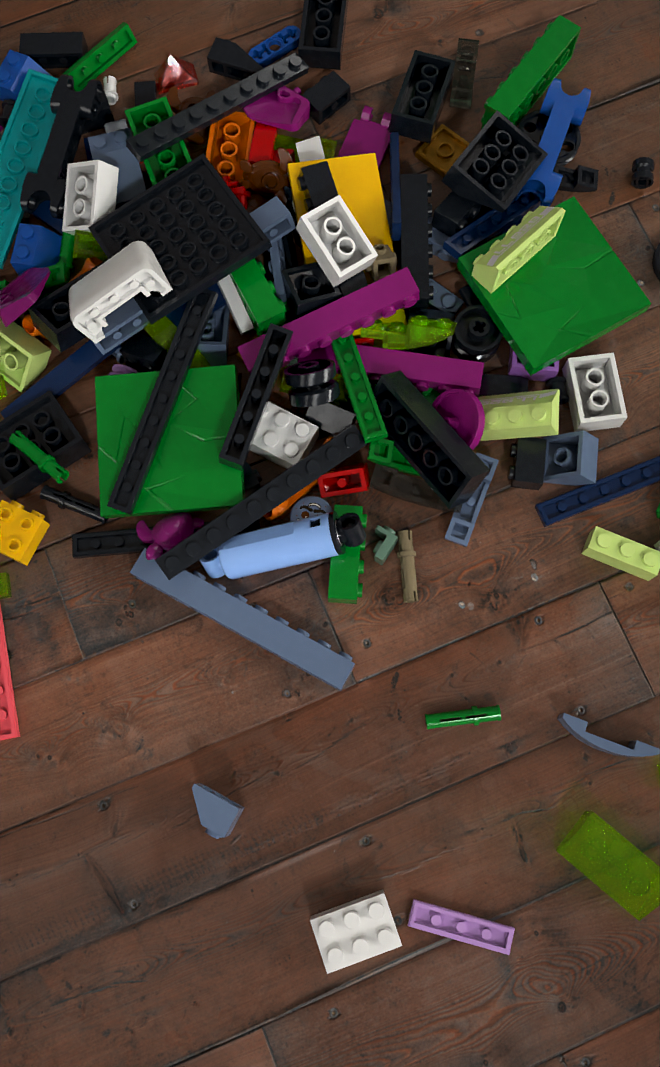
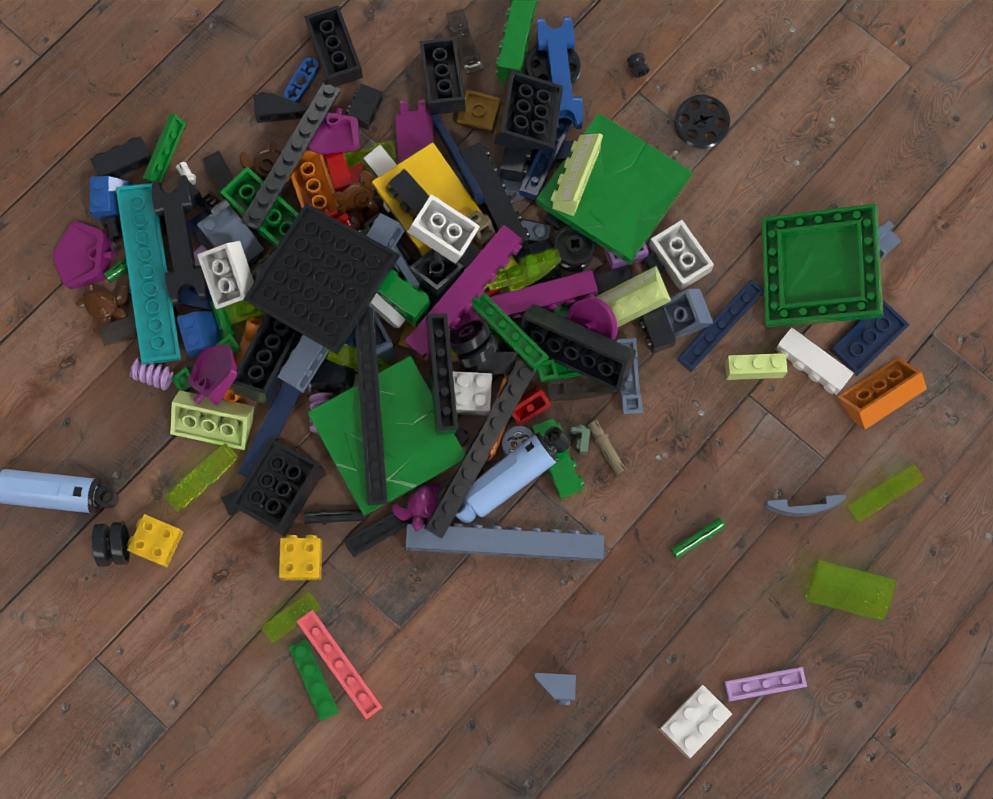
camera: 30 degrees left, 0 degrees up
(45, 462) = (301, 494): green pin -> none
(113, 284) = (296, 339): white windscreen -> none
(175, 73) = (232, 139): clear red slope -> none
(578, 180) = (591, 90): black slope -> none

